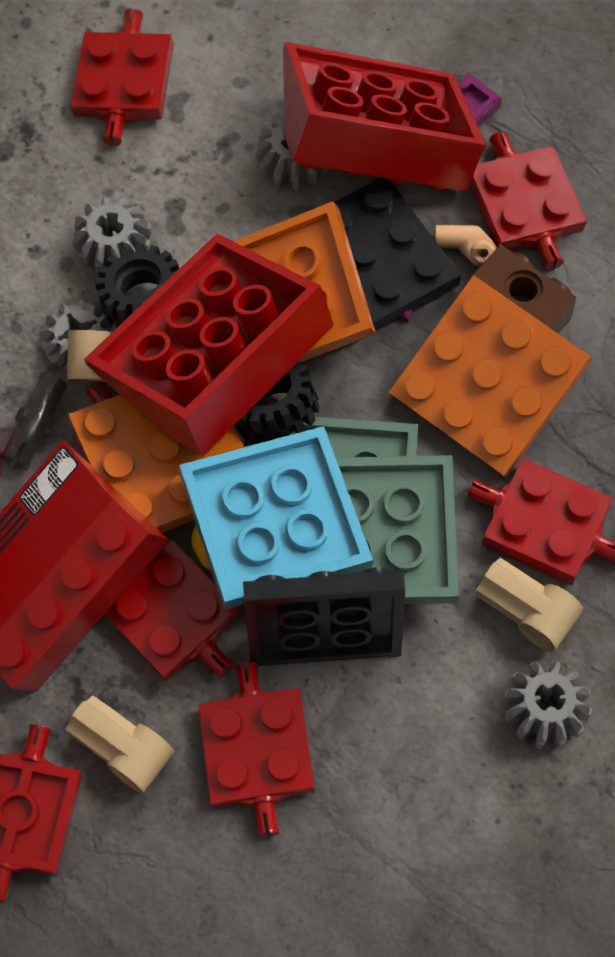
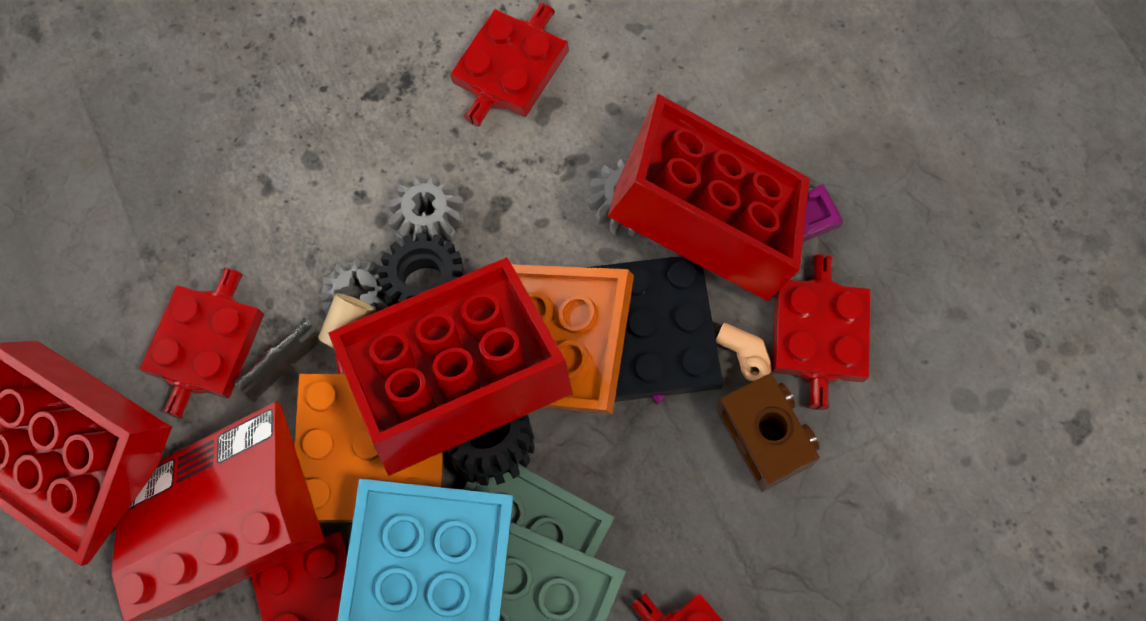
camera: 25 degrees right, 5 degrees up
(490, 375) = (704, 500): orange plate -> none

